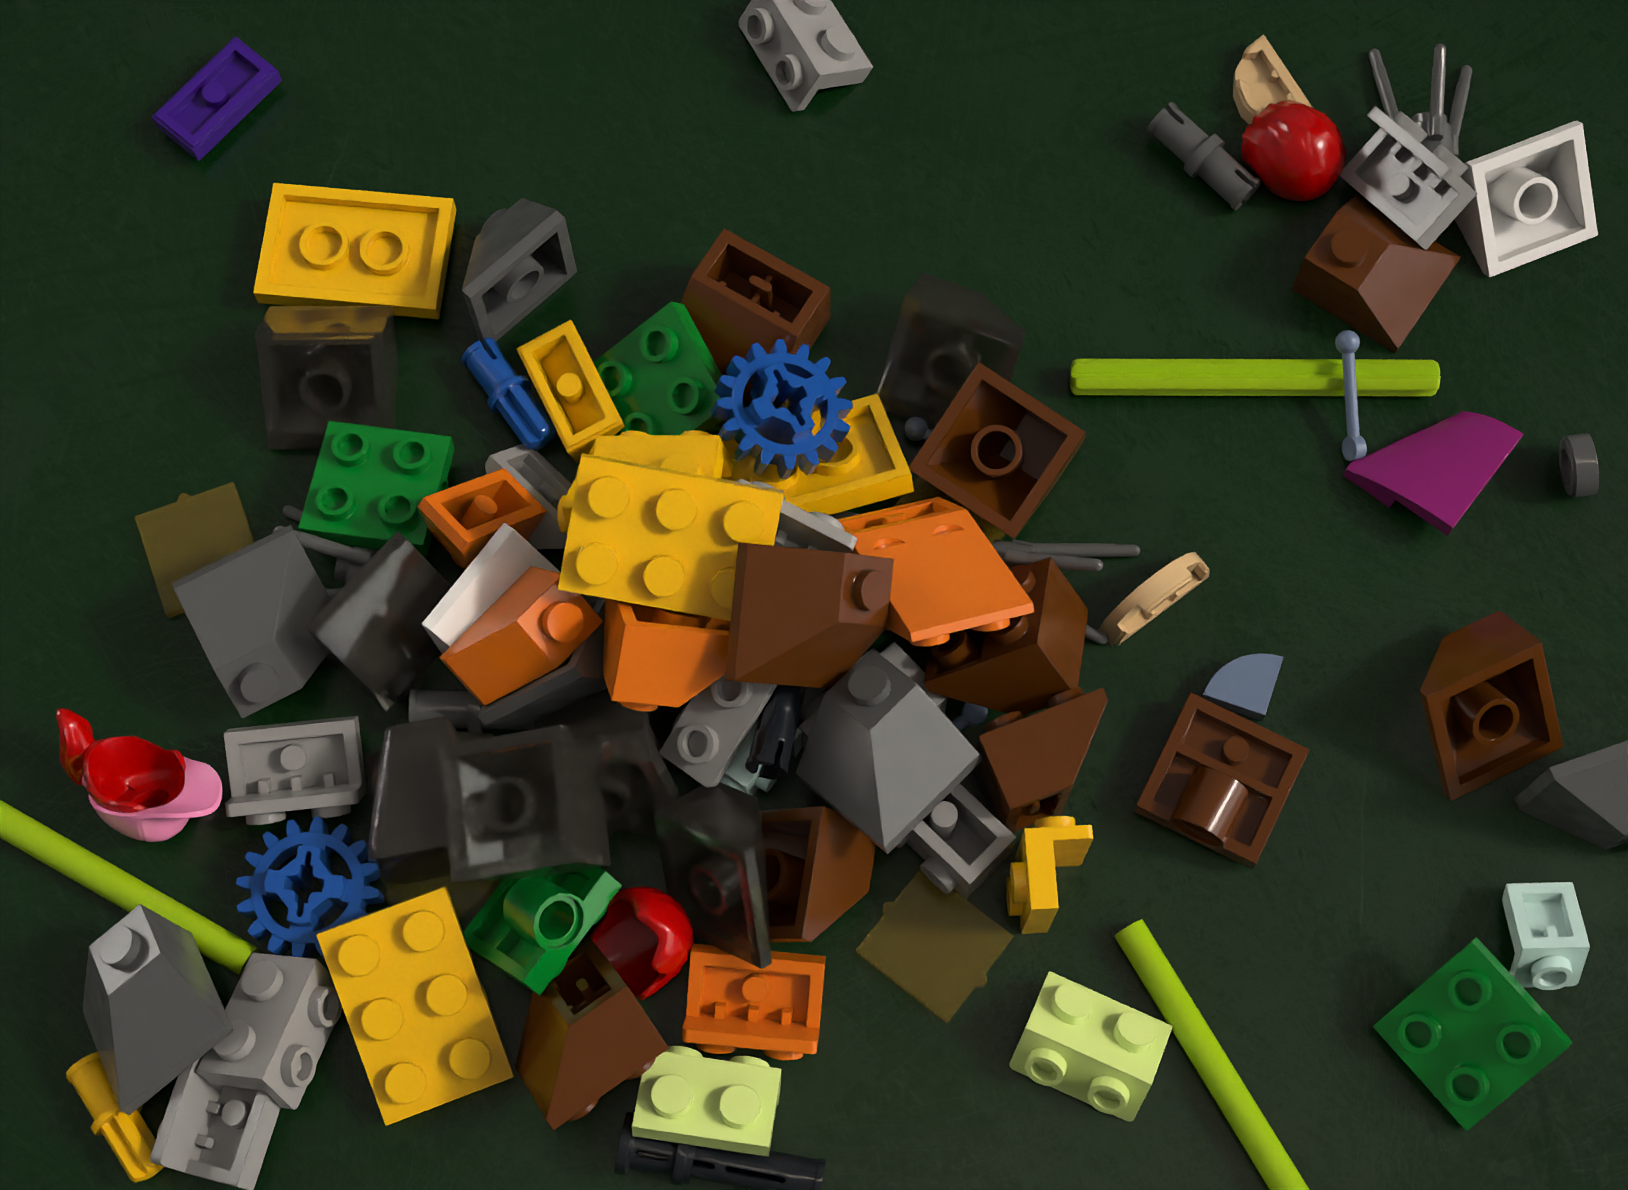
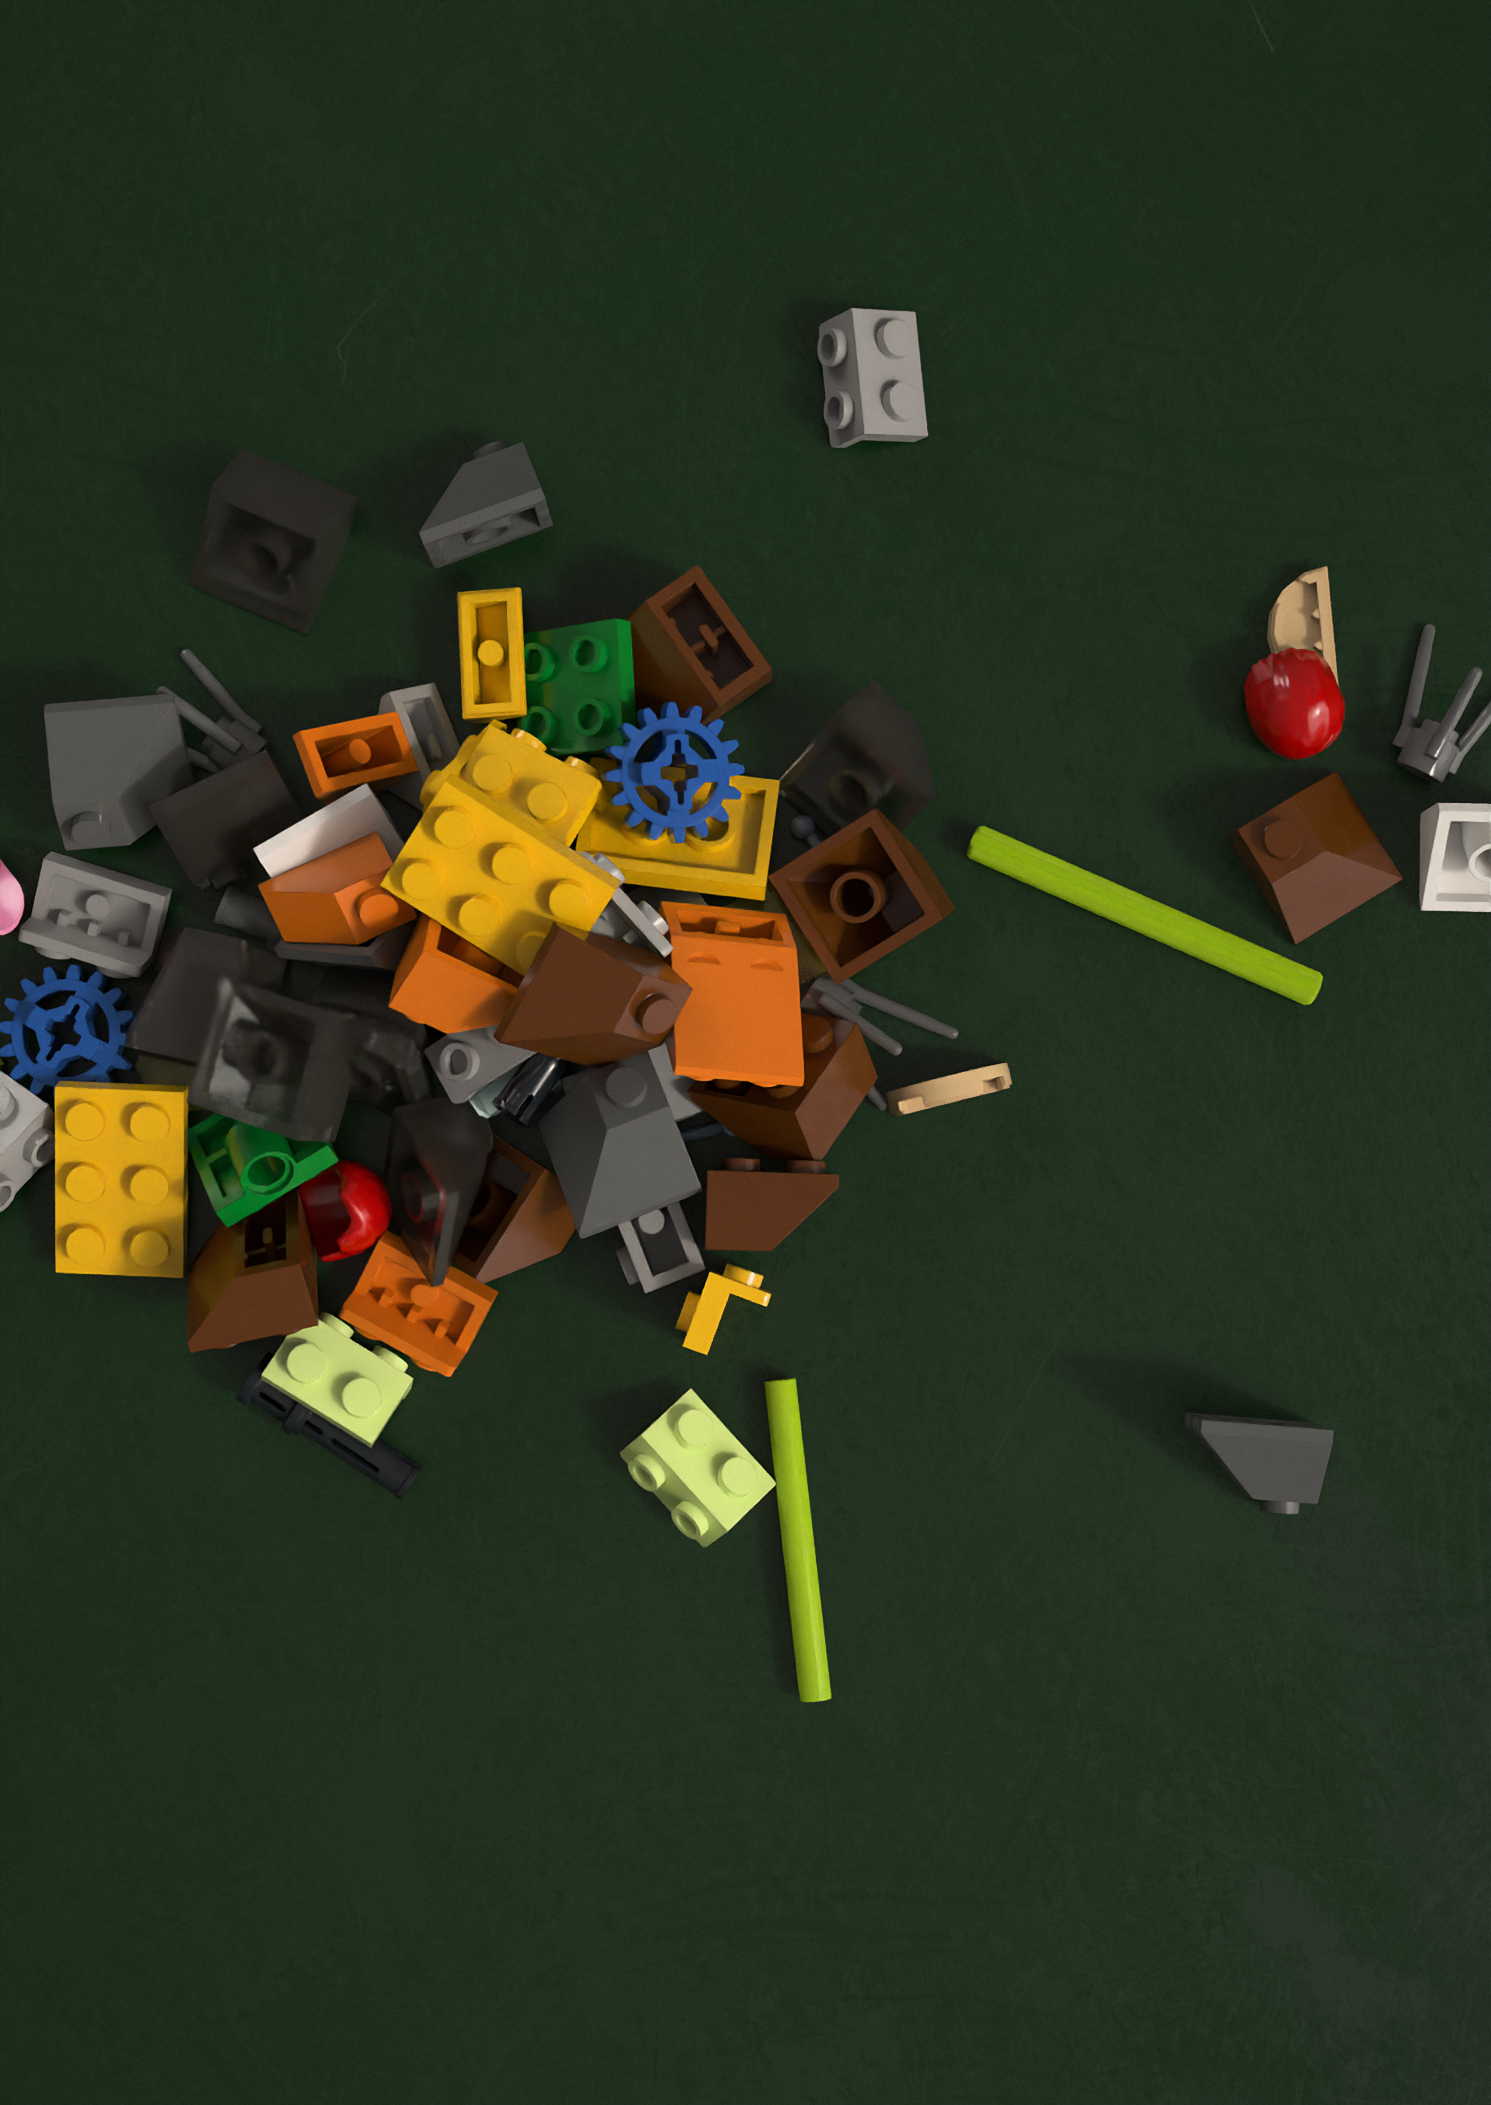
camera: 25 degrees right, 15 degrees up
(191, 536) = (90, 651): clear yellow piece -> none
(216, 98) = (275, 195): dark purple plate -> none
(355, 249) = (347, 418): yellow plate -> none
(372, 485) = (272, 677): green plate -> none
(509, 394) = (434, 630): blue axle -> none
(934, 946) = (601, 1320): clear yellow piece -> none
(1203, 156) = (1204, 670): dark grey pin -> none
(1221, 780) = (924, 1285): reddish brown plate -> none
(1245, 684) = (991, 1205): sand blue tile -> none
(1353, 445) = (1204, 1023): sand blue hinge -> none
(1407, 181) = (1381, 787): light grey bracket -> none
(1437, 468) = (1271, 1079): magenta slope -> none
(1472, 1034) = (1031, 1607): green plate -> none
(1488, 704) = (1196, 1322): reddish brown slope -> none
(1545, 934) = (1144, 1547): light aqua bracket -> none
(1579, 465) = (1402, 1135): dark grey tile -> none

